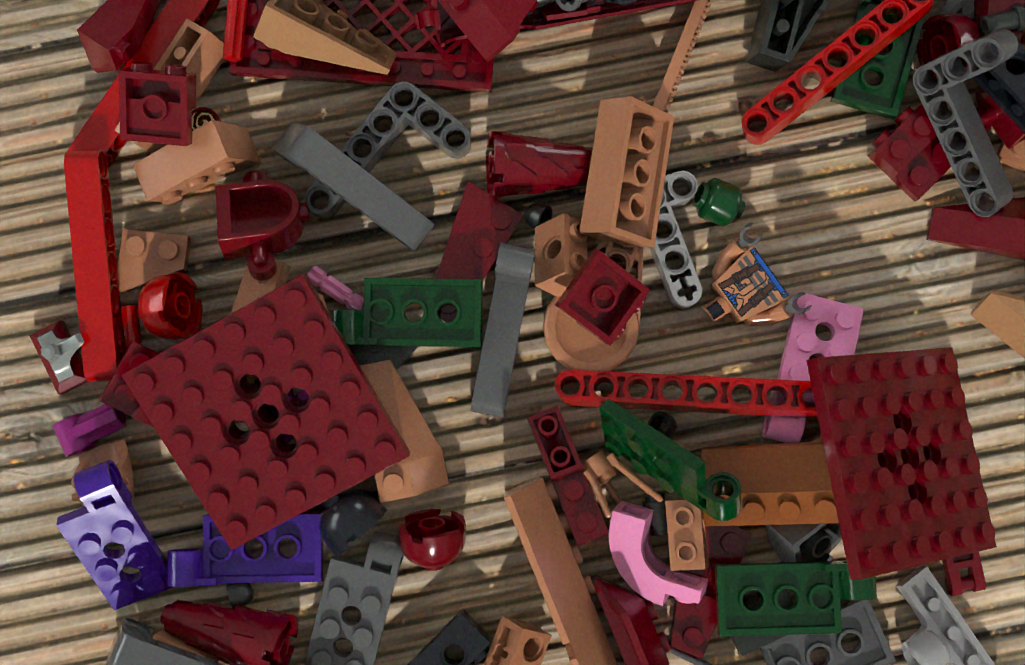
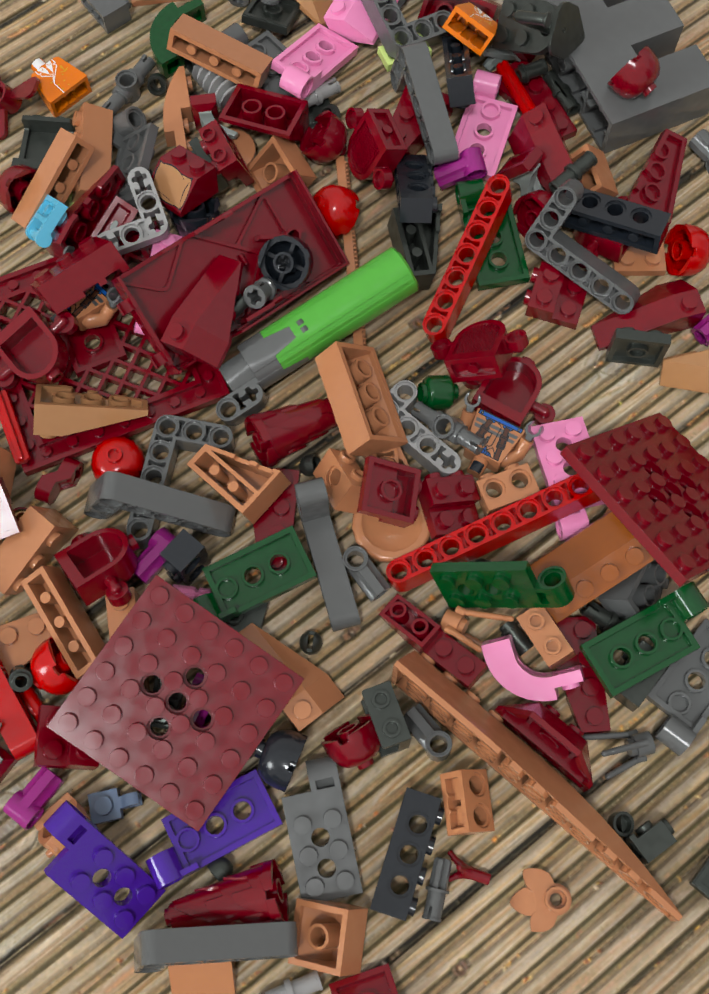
camera: 30 degrees left, 15 degrees down
(125, 300) = (20, 685): none -> pearl dark grey pin
(159, 473) = (109, 805): none -> sand blue plate
(198, 262) = (64, 617): none -> nougat brick
(251, 99) = (52, 483): none -> dark red piece
(334, 109) = (117, 455): none -> red cylinder
(334, 232) = (150, 560): none -> magenta piece
(350, 257) = (184, 558): none -> black brick
(447, 201) = (239, 481): none -> nougat wedge
(447, 414) = (317, 643): none -> pearl dark grey hinge
(473, 537) = (387, 718): none -> pearl dark grey panel
(511, 562) = (427, 730): none -> dark grey piece
(535, 370) = (366, 575): none -> dark grey piece
(619, 63) = (313, 329): none -> bright green piece
(663, 337) = (448, 502): none -> dark red plate
(716, 264) = (458, 433): none -> dark grey pin
(733, 358) = (503, 484): none -> nougat brick
(761, 547) = (600, 616): none -> pearl dark grey pin
(790, 180) = (480, 351): none -> dark red piece
(799, 241) = (514, 394): none -> dark red piece
(970, 264) = (638, 347): none -> pearl dark grey plate

